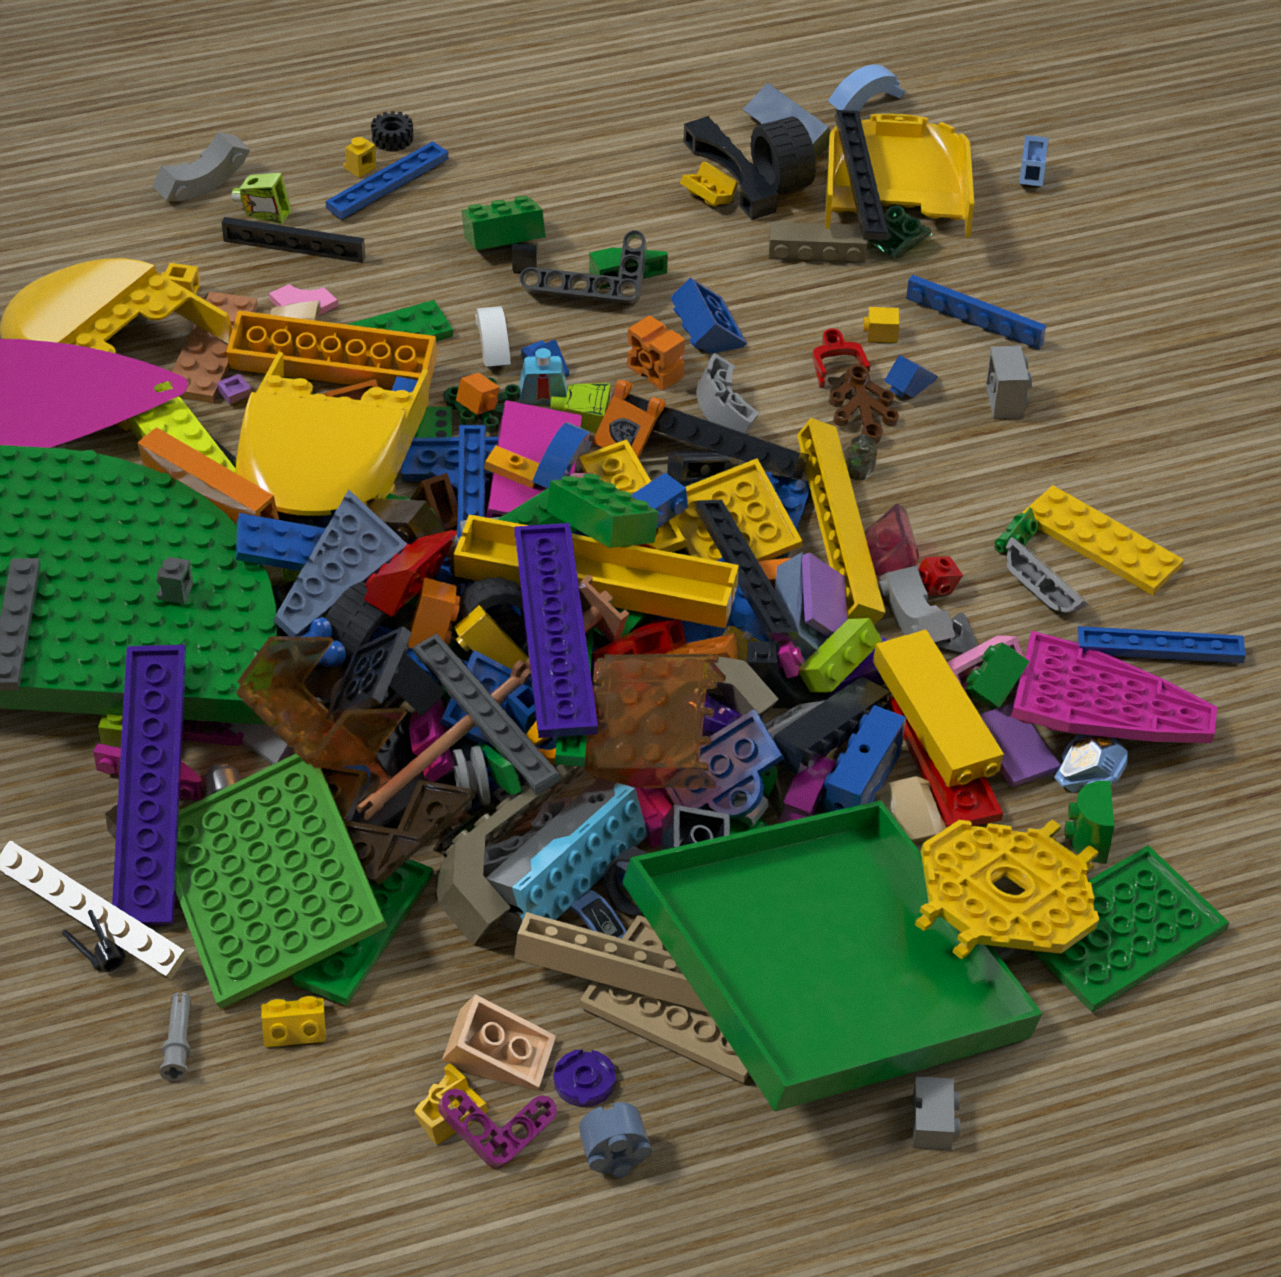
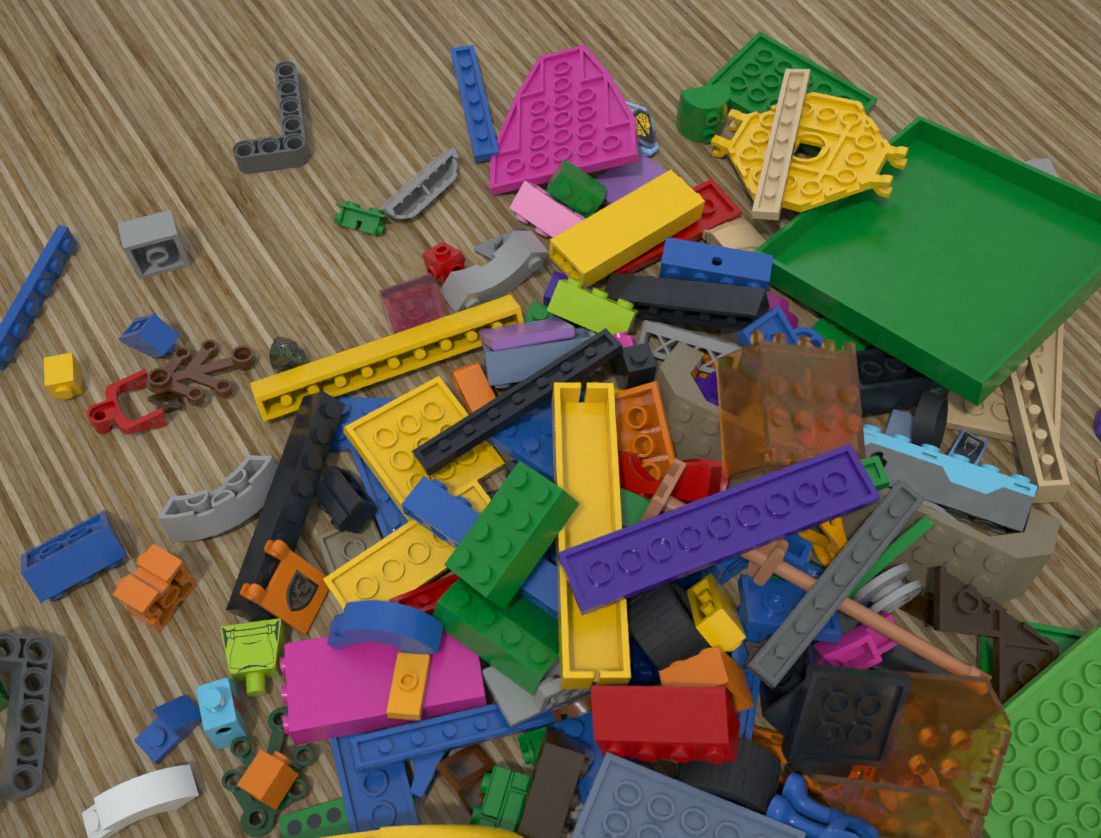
camera: 105 degrees left, 15 degrees up
(1020, 855) = (781, 145): none -> tan plate
(1104, 540) = (347, 159): yellow plate -> none
(1159, 499) = (283, 150): none -> dark grey beam

